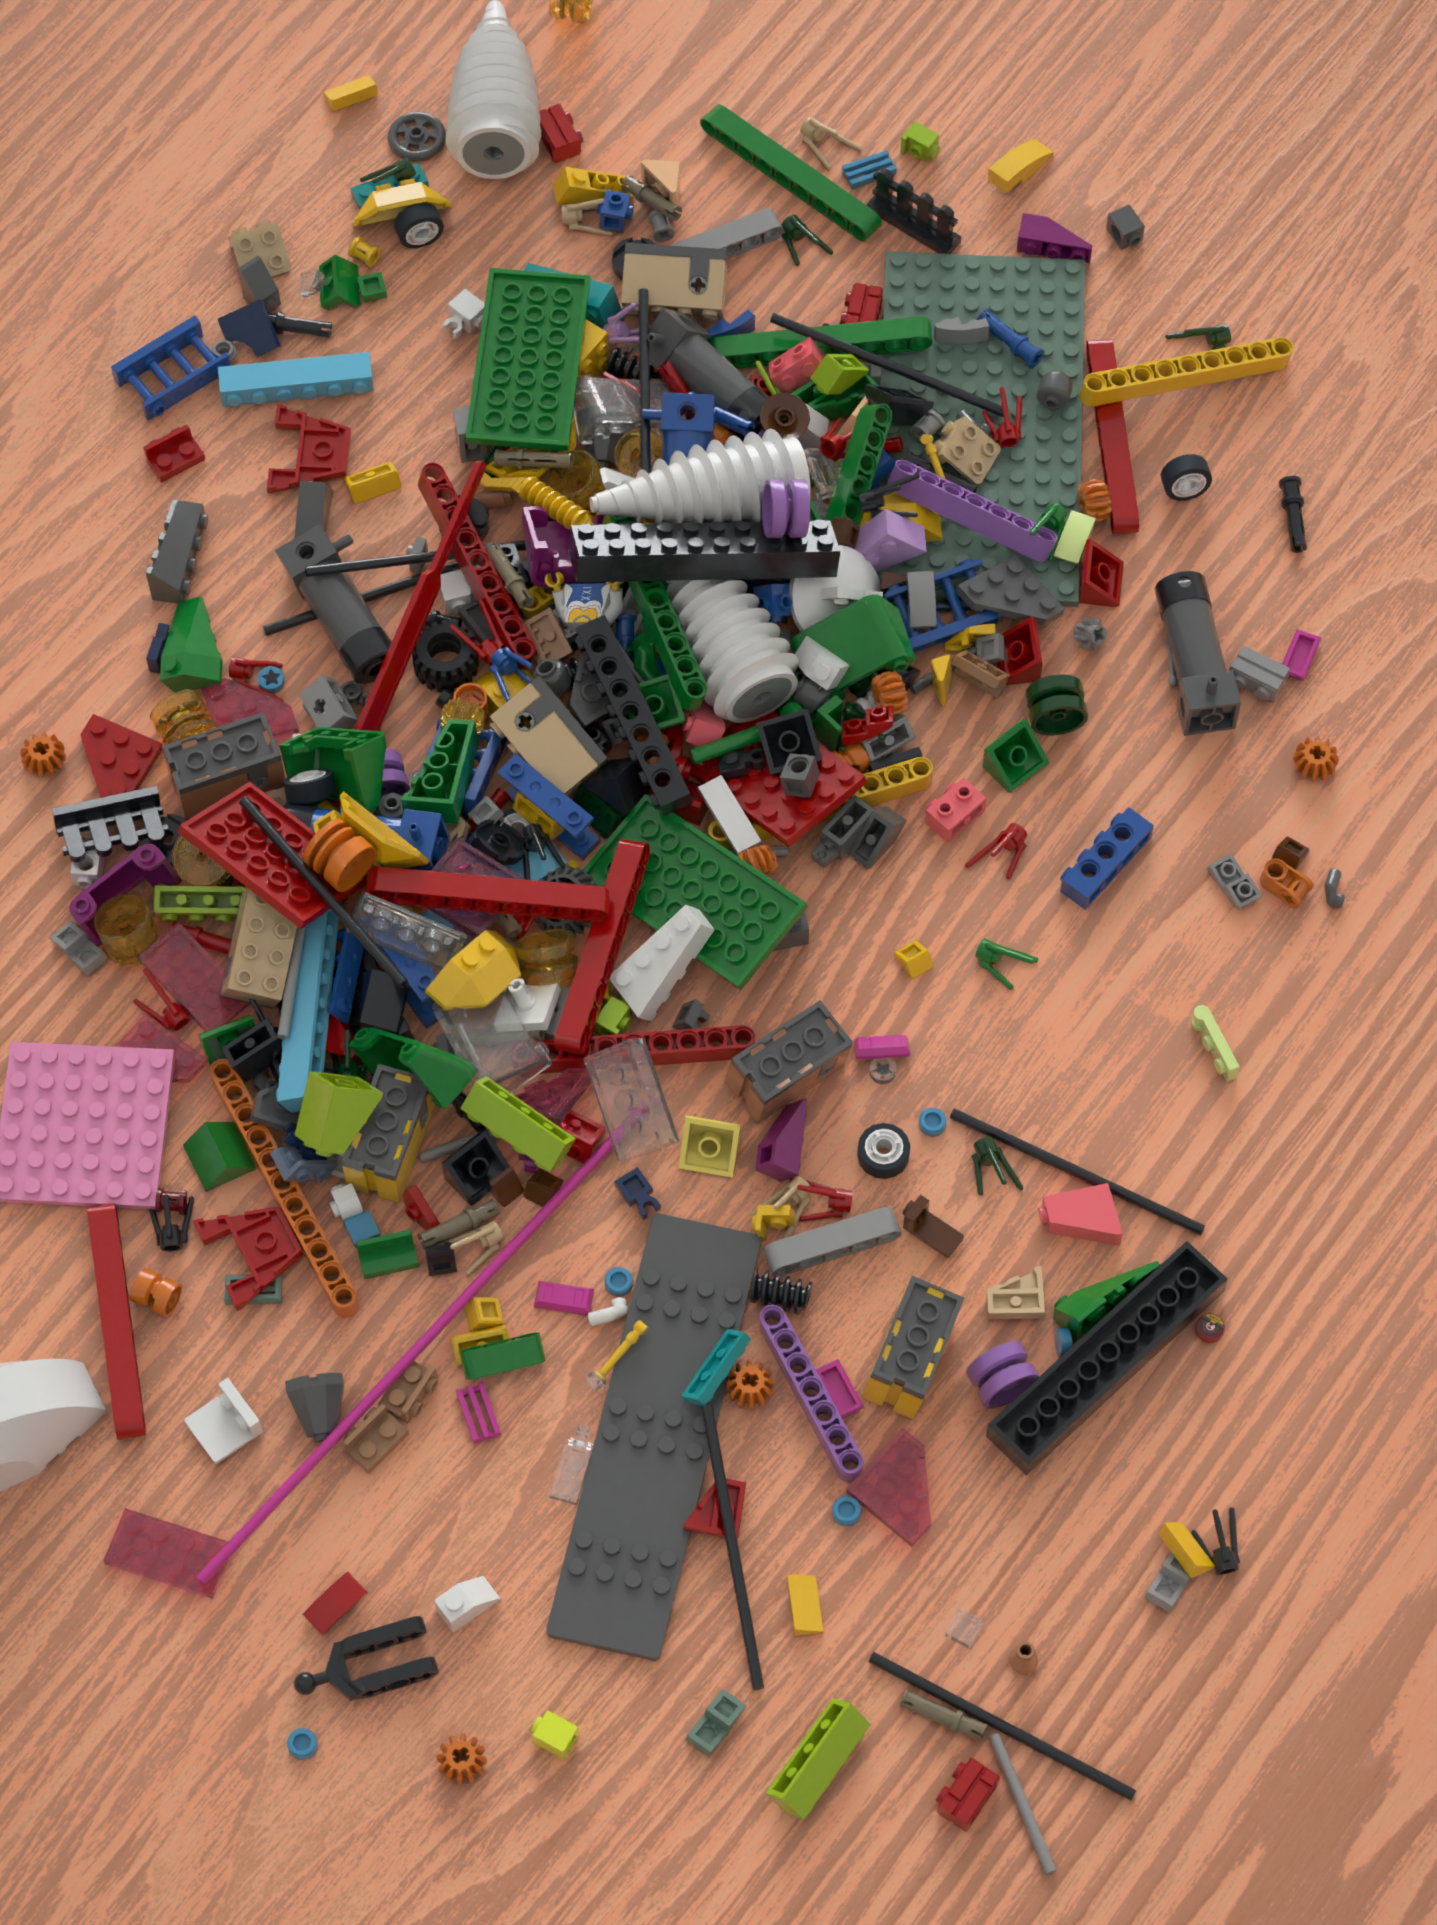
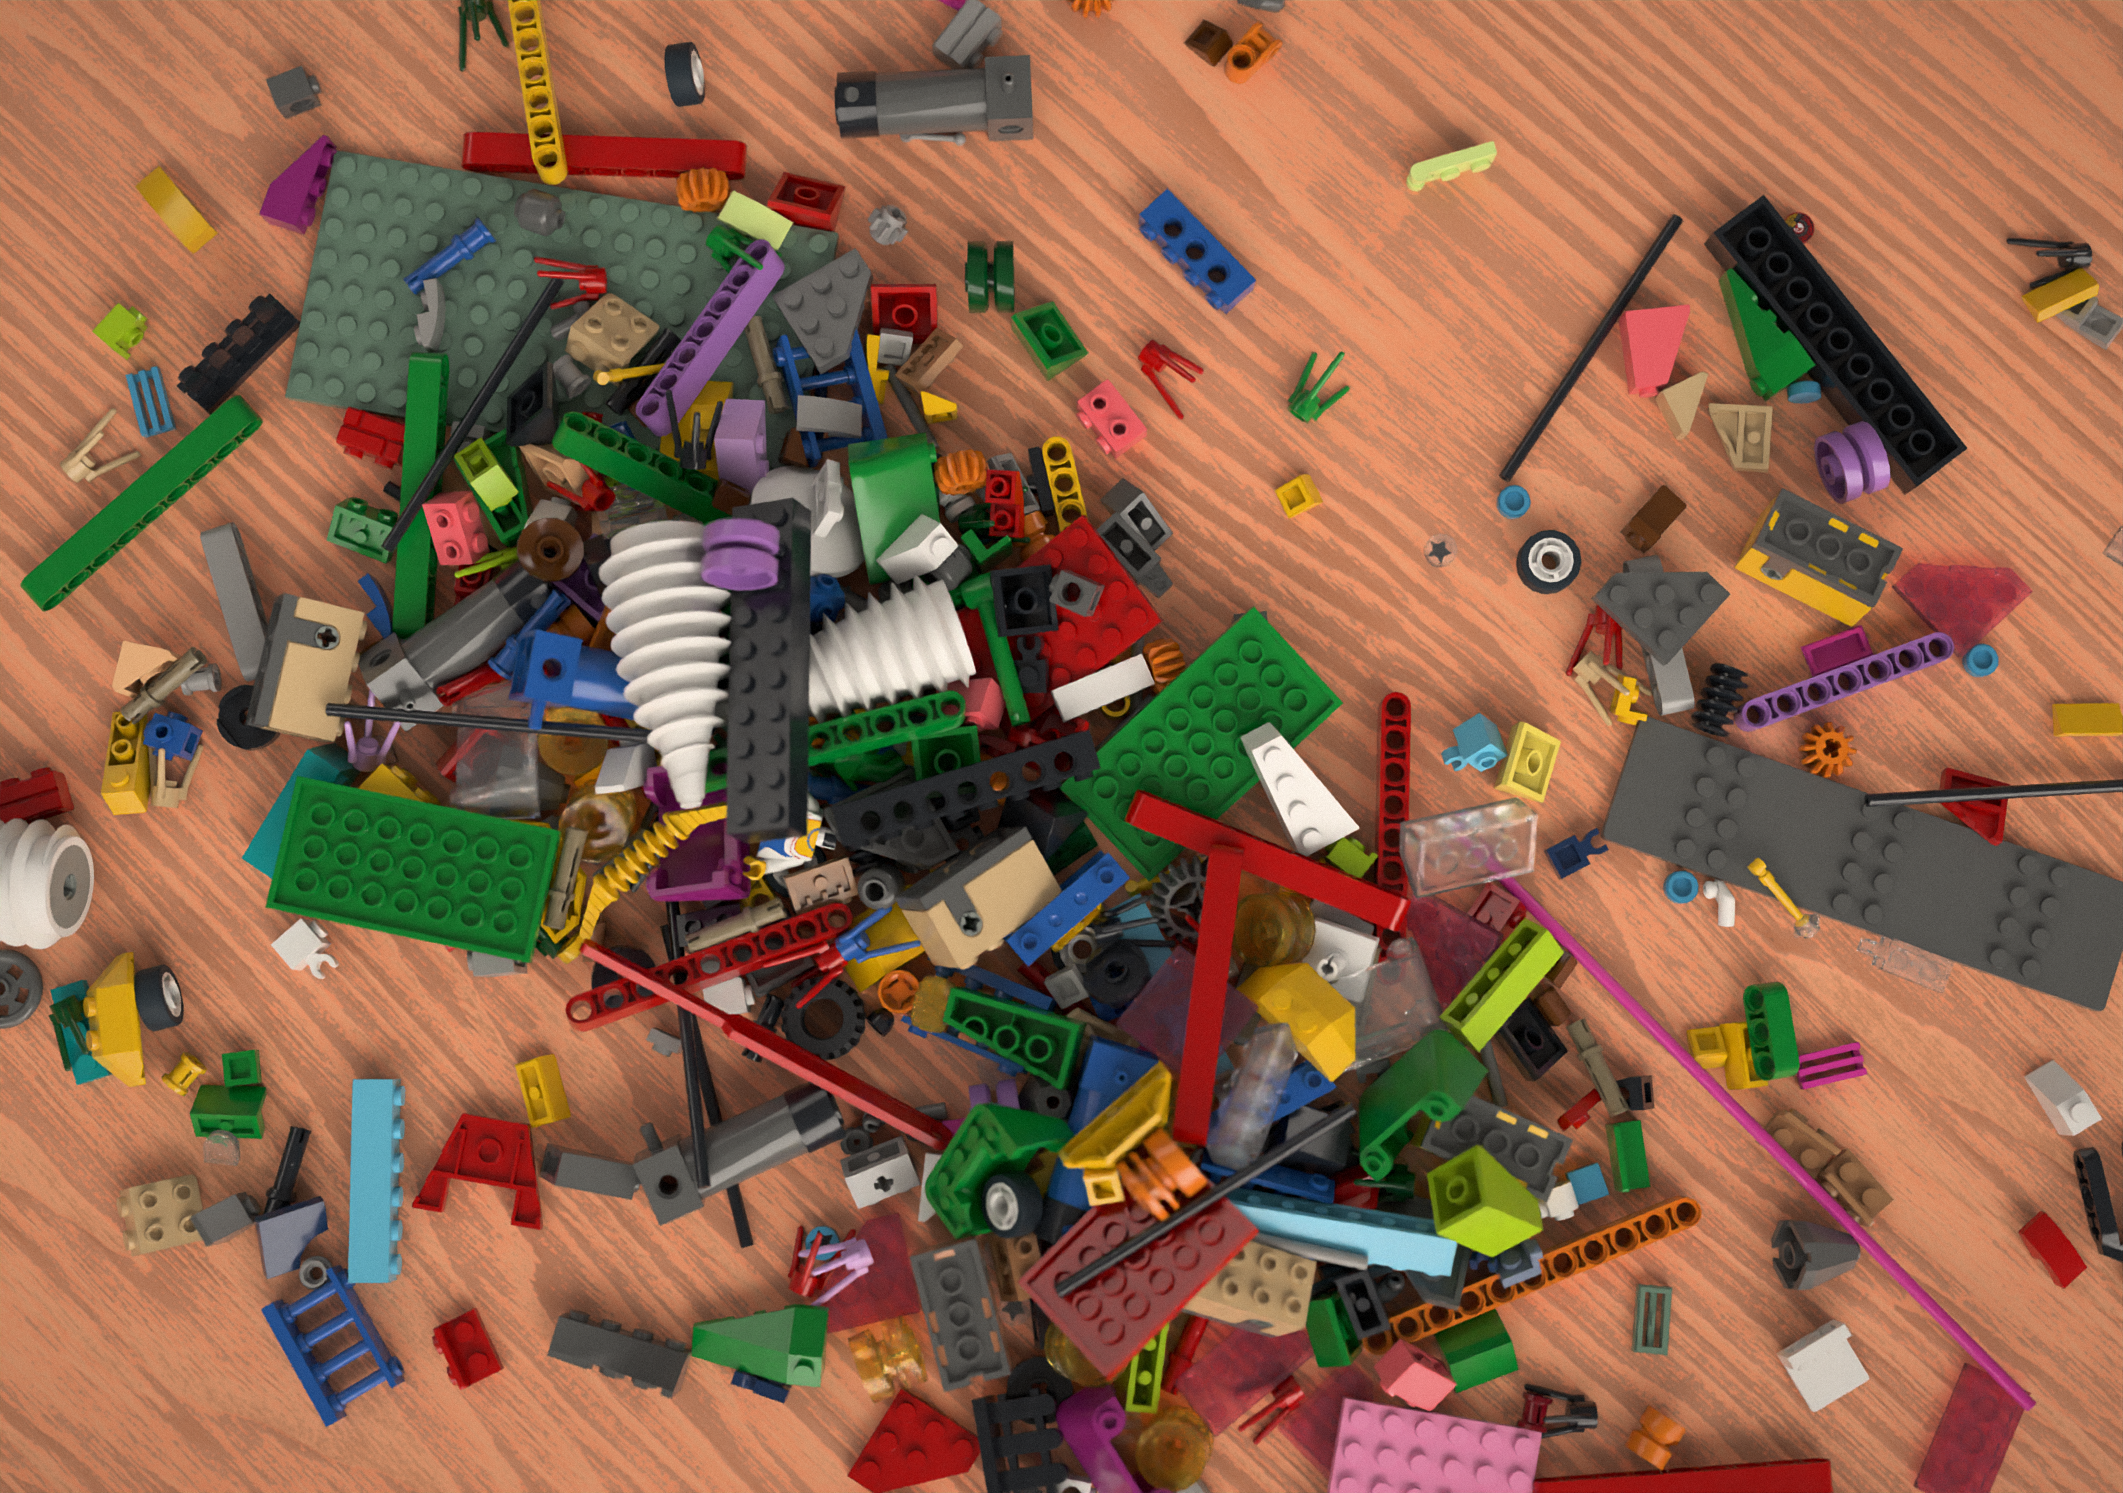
camera: 85 degrees left, 20 degrees up
(195, 1097) = (1414, 1376): none -> coral brick
(262, 694) = (855, 1257): none -> lavender plant
(264, 1243) = (1601, 1303): red wing -> none
(486, 1236) = (1619, 1034): tan plant -> none
(563, 1298) = (1693, 953): dark pink tile -> none
(623, 368) = (423, 745): black piece -> none
(689, 1014) = (1354, 768): dark grey tile -> none
(716, 1367) = (1815, 785): teal plate -> none
(720, 1102) = (1477, 744): none -> medium azure brick
(782, 1145) = (1532, 676): magenta slope -> none
(788, 1061) = (1444, 654): dark grey piece -> none
(794, 305) = (362, 528): none -> green bracket
(796, 230) = (233, 505): dark green plant -> none
(853, 1231) = (1661, 607): none -> dark grey plate
(881, 1047) = (1415, 547): dark pink tile -> none
(949, 560) = (768, 375): none -> dark tan pin
(989, 1154) = (1563, 443): dark green plant -> none
(1038, 1243) = (1680, 404): none -> tan slope
(1233, 882) = (1240, 112): light grey slope -> none

